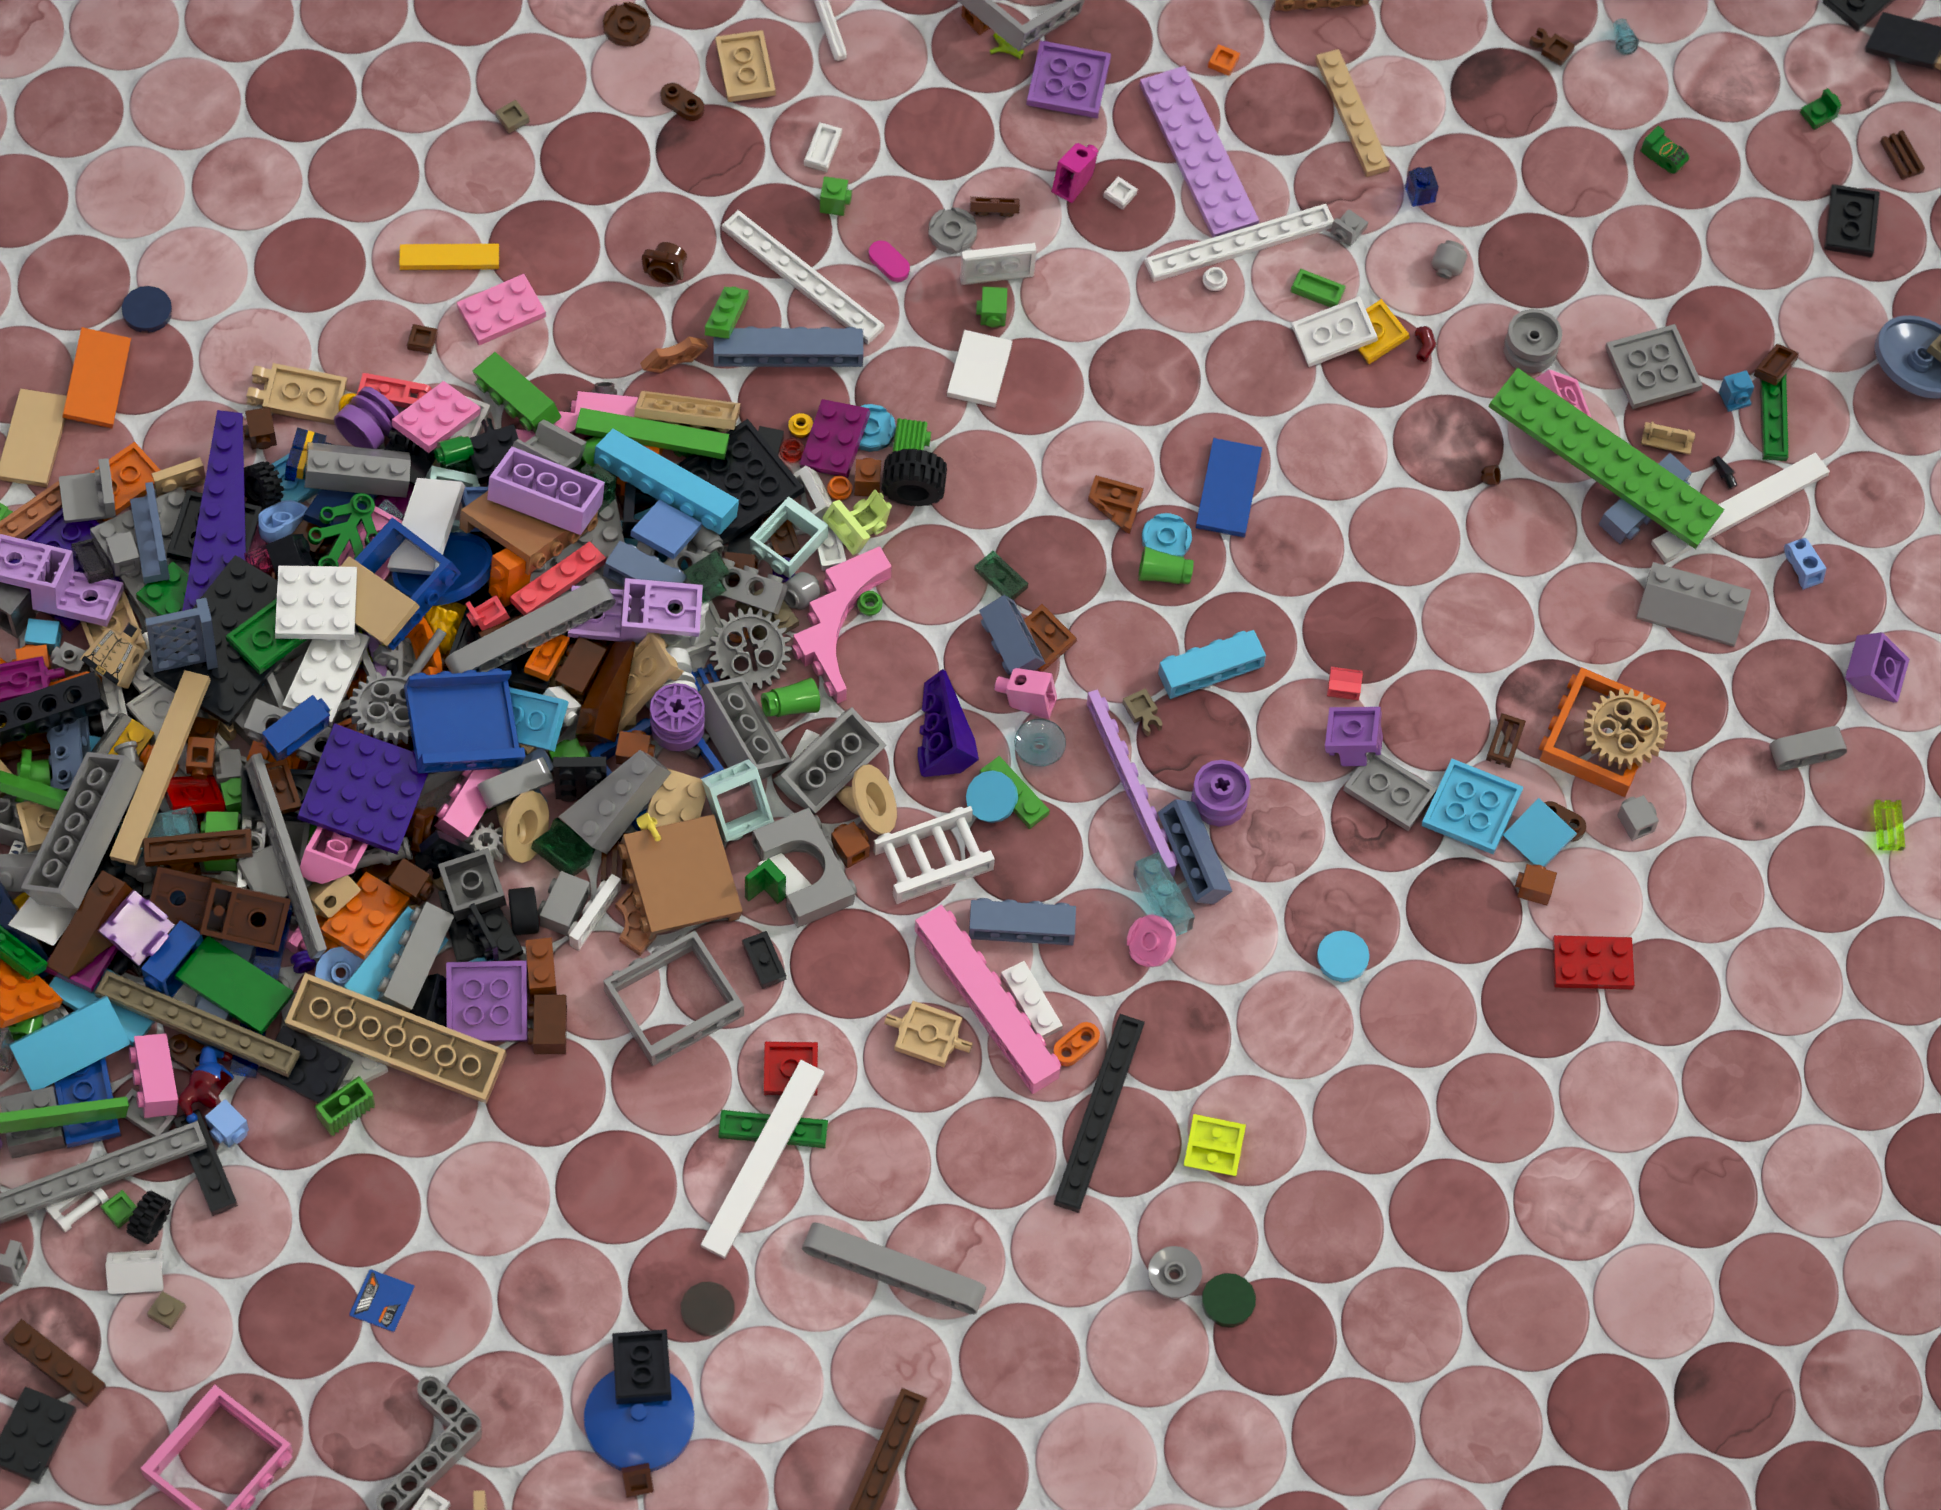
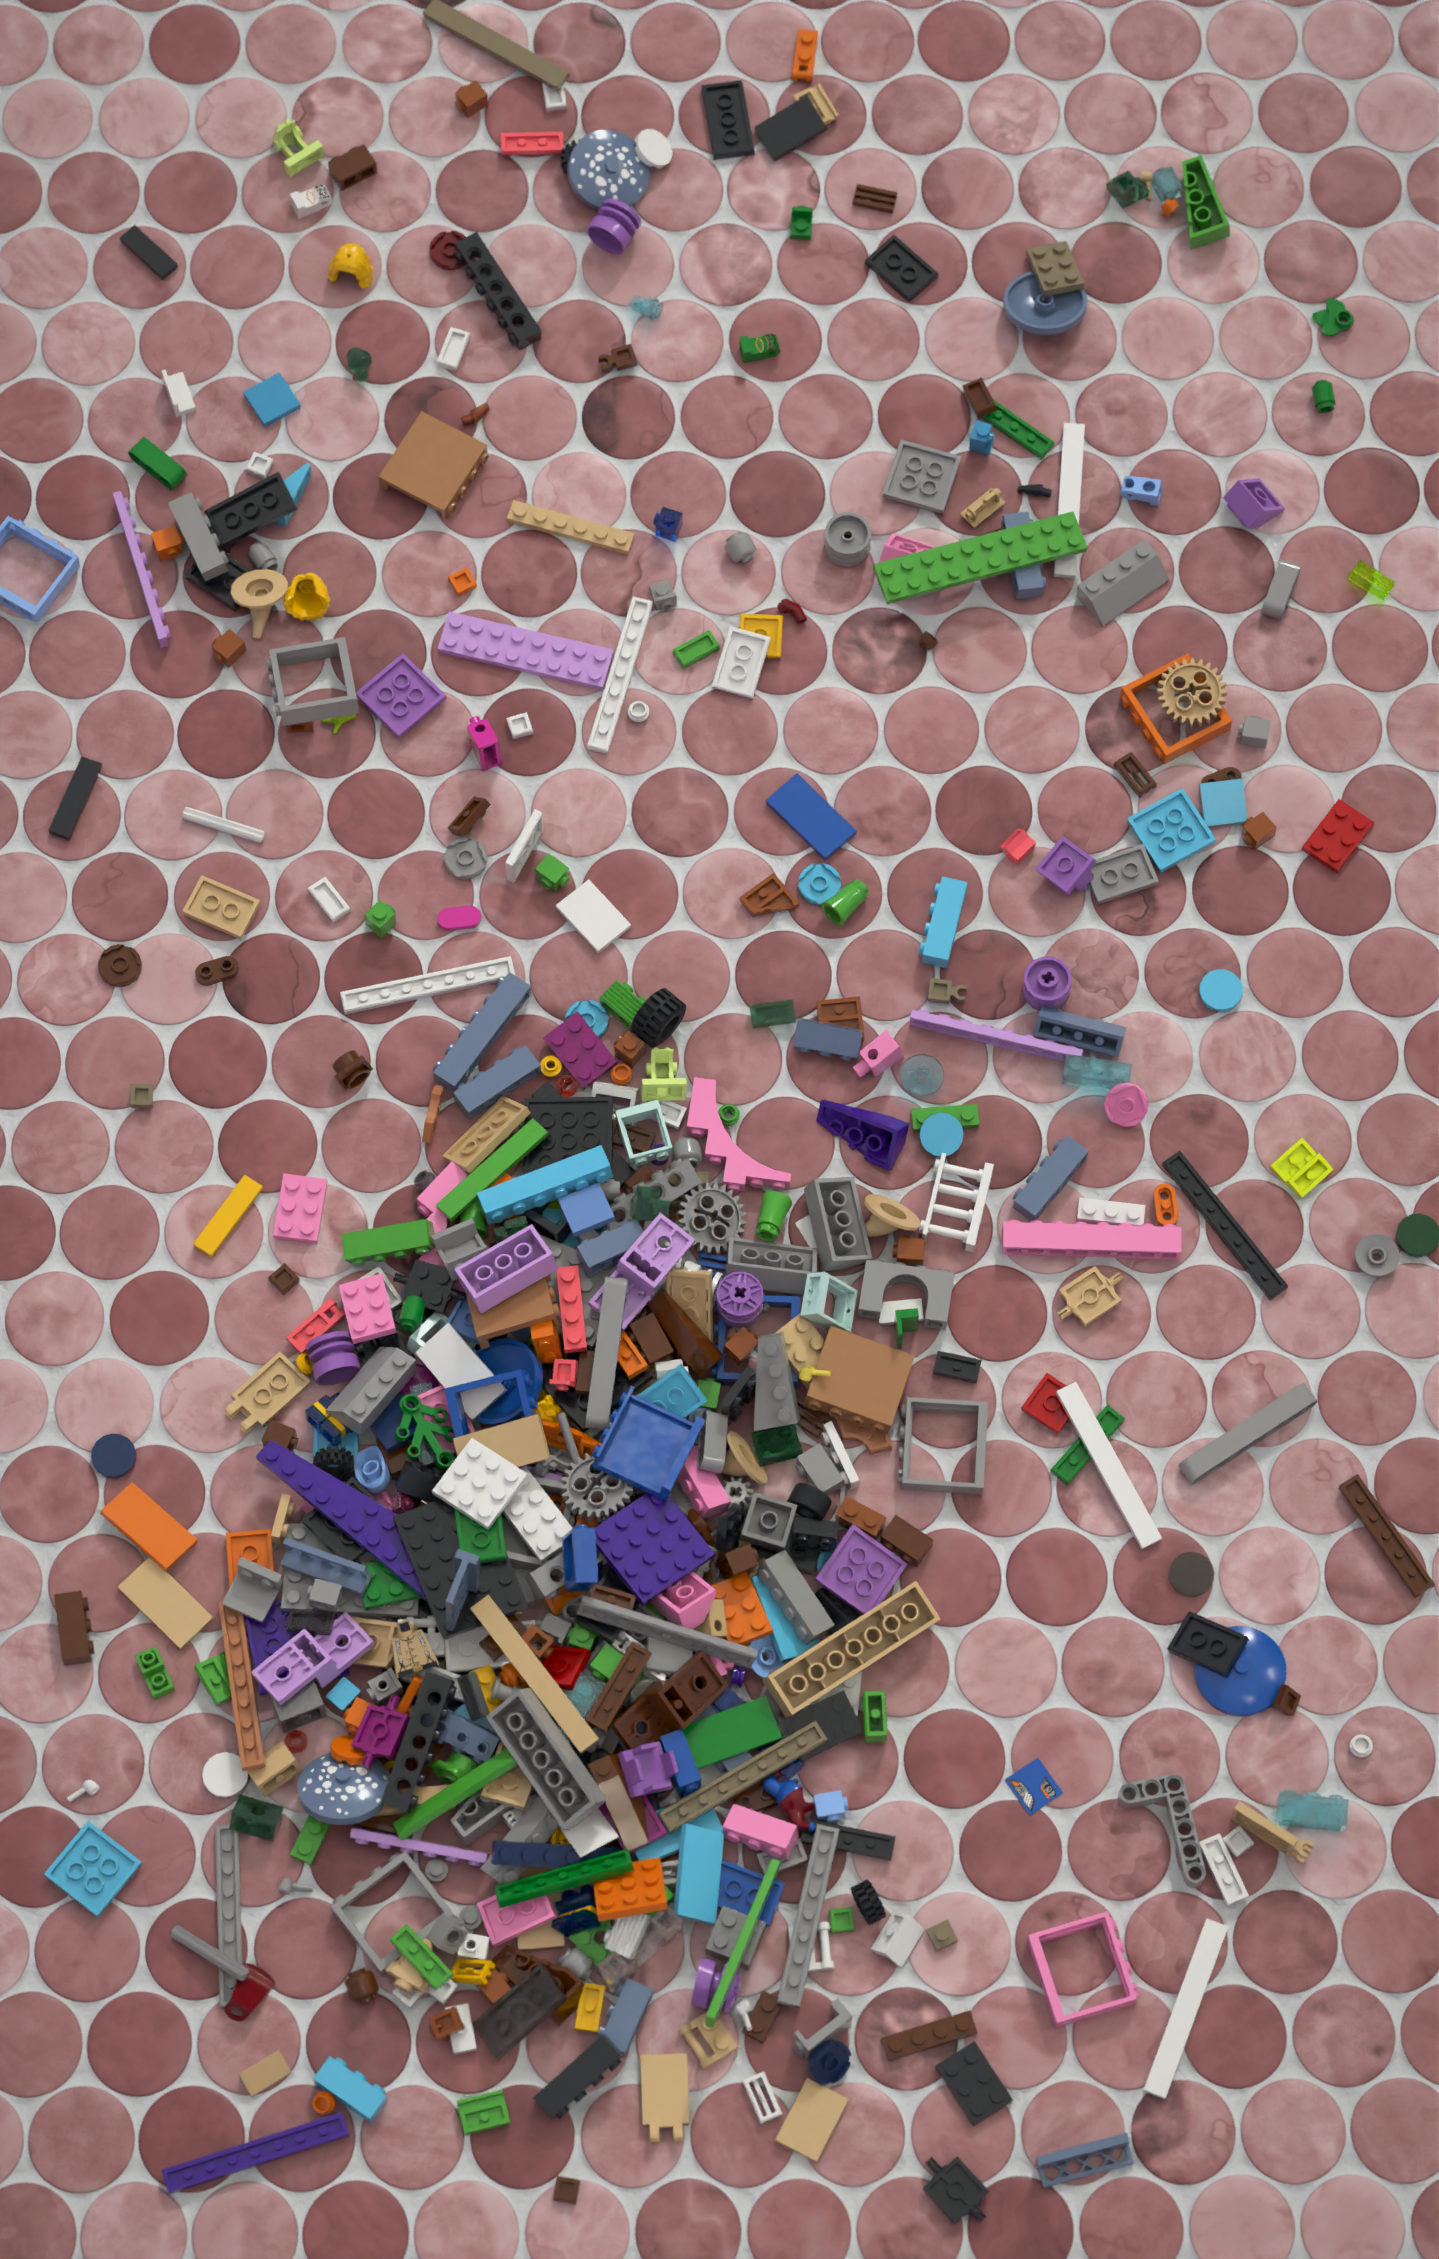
camera: 50 degrees left, 5 degrees up
(726, 312) = (425, 1055): bright green plate -> none
(753, 390) = (497, 1081): none -> sand blue brick

